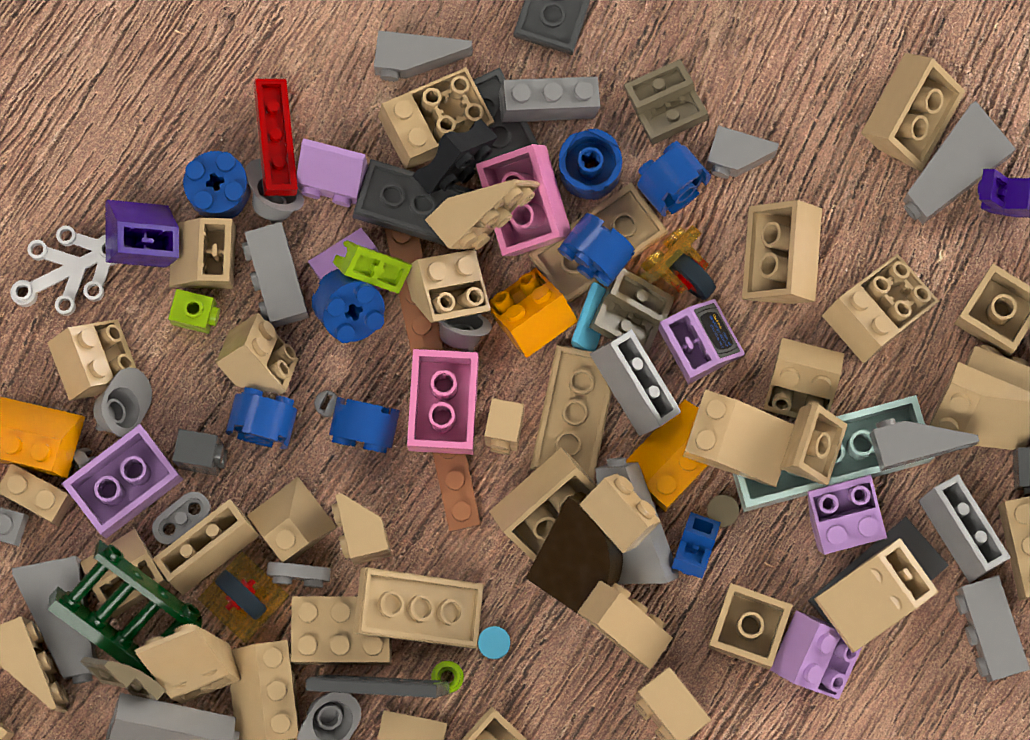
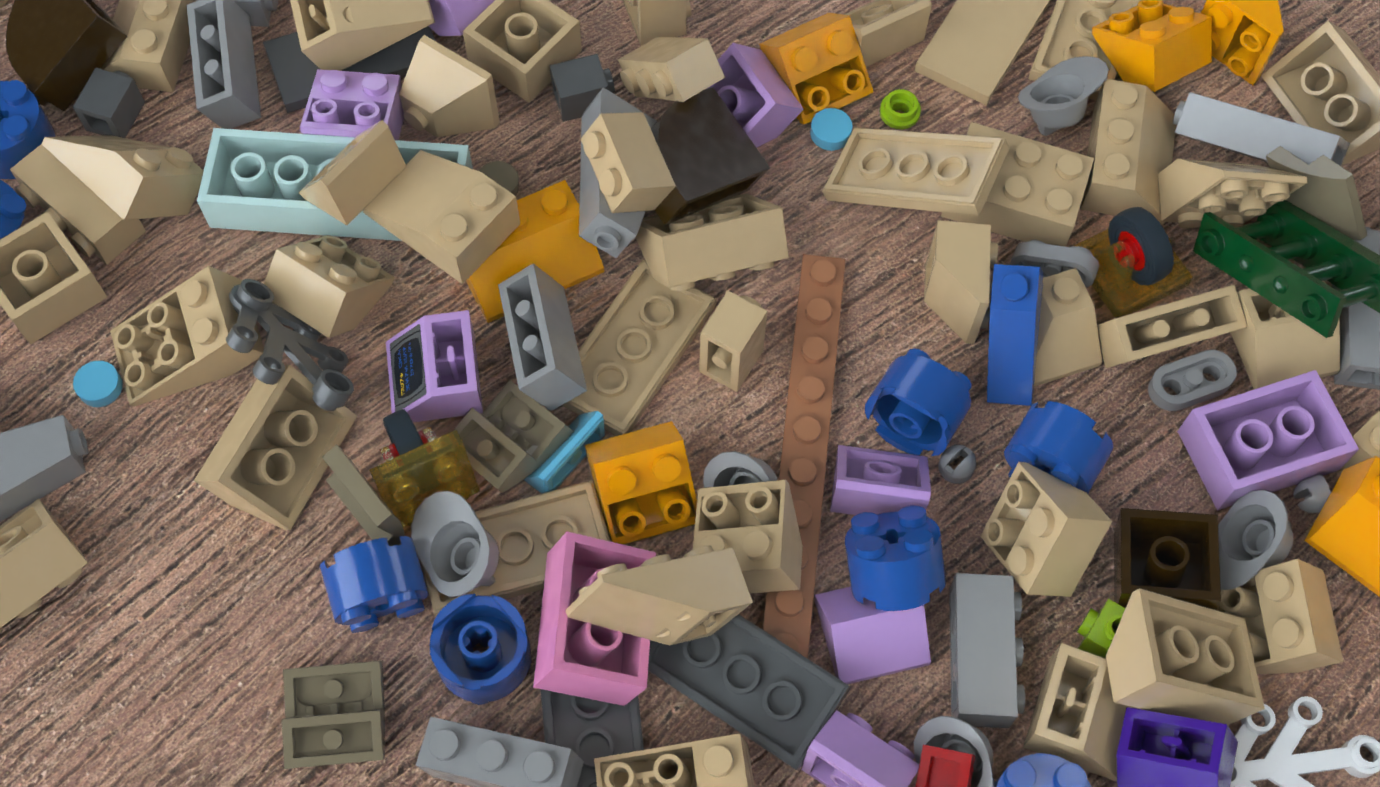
camera: 165 degrees left, 15 degrees down
(149, 296) = (1183, 660): none -> tan slope
(173, 365) = (1167, 556): none -> dark brown brick
(199, 452) = (1154, 436): dark grey brick -> none
(314, 501) = (1013, 333): none -> blue slope
(373, 267) = (850, 584): lime hinge -> none
(374, 368) = (878, 481): none -> lavender slope
(378, 685) = (991, 93): dark grey tile -> none
(443, 401) = (804, 384): bright pink brick -> none
(456, 158) = (670, 706): black brick -> none
(522, 690) = (820, 64): none -> light orange slope
(562, 641) = (755, 93): none -> lavender slope
(597, 249) = (521, 509): blue brick -> none
(631, 215) = (453, 544): none -> light grey piece
(691, 607) = (577, 84): none -> dark grey brick
(696, 545) = (549, 145): blue brick -> none
(712, 230) = (362, 498): none -> dark tan slope
(738, 152) = (270, 598): light grey slope -> none
(788, 557) = (447, 92): none -> tan slope
(806, 316) = (254, 303): none -> dark grey plant
(911, 442) = (233, 136): light grey slope -> none
(925, 259) = (97, 383): none -> medium azure tile

